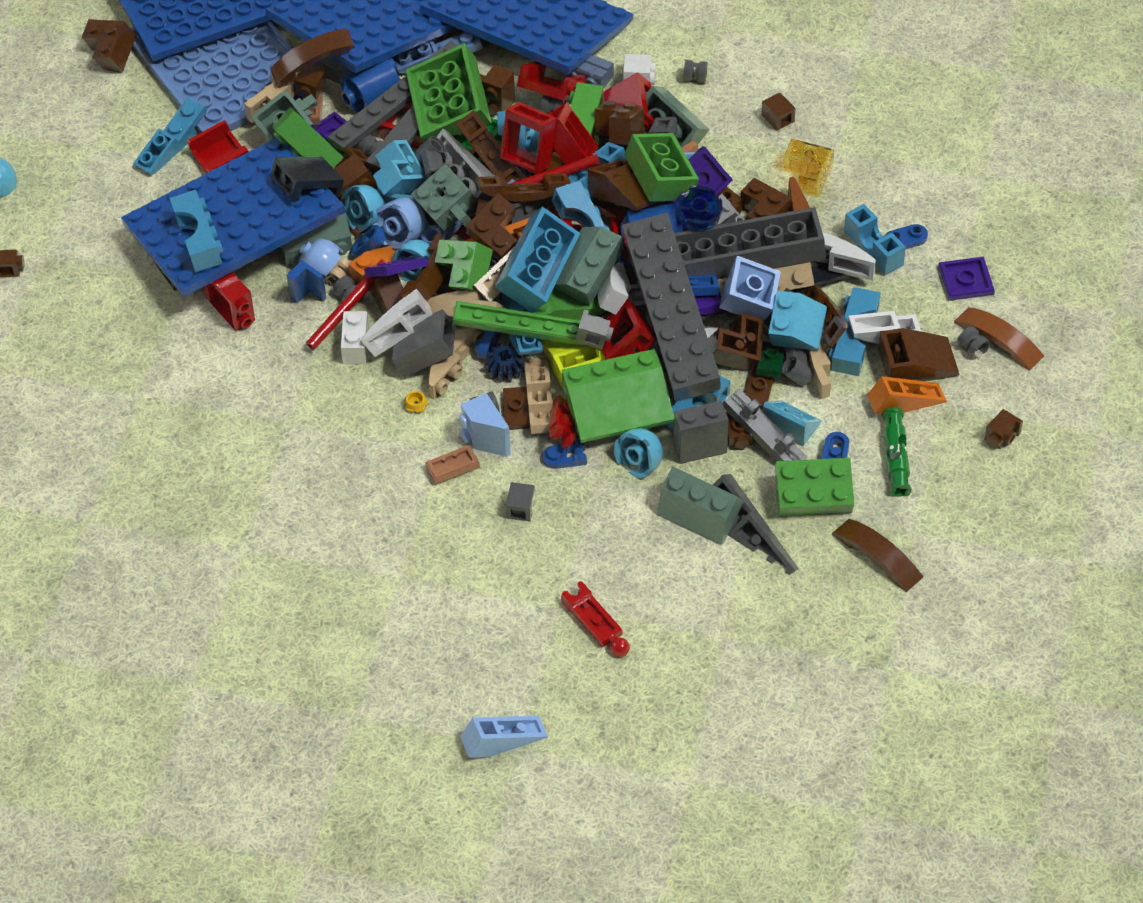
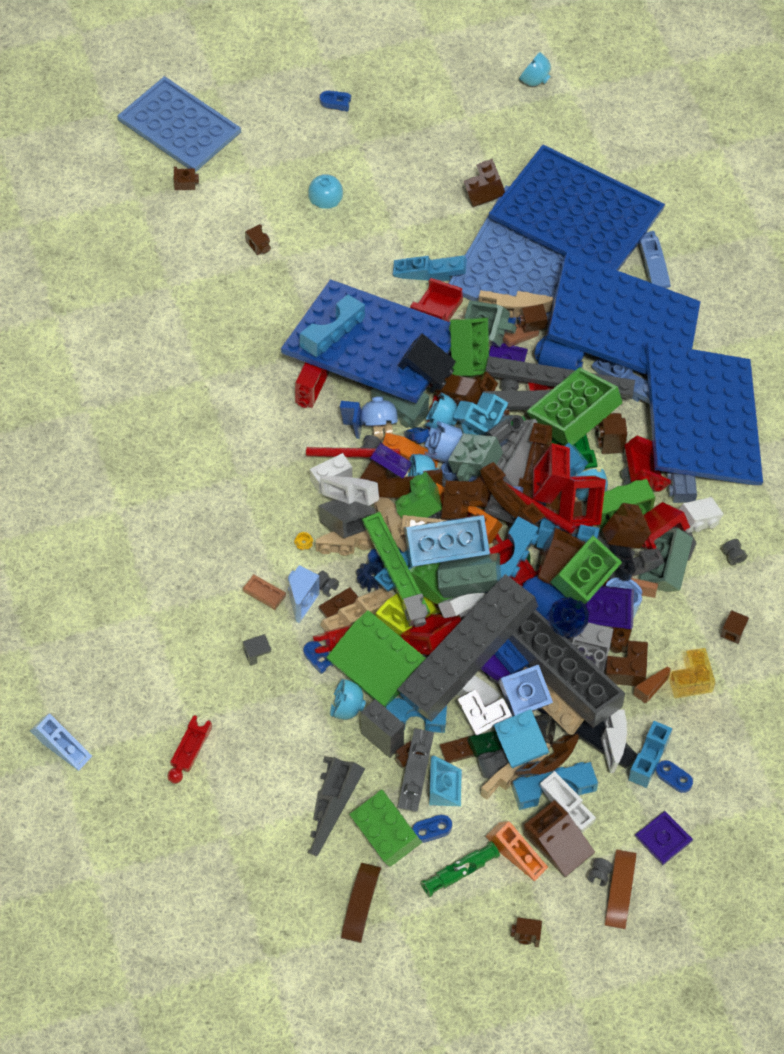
camera: 55 degrees right, 5 degrees up
(309, 52) = (543, 301): reddish brown slope -> none
(698, 505) = (324, 760): sand green slope -> none

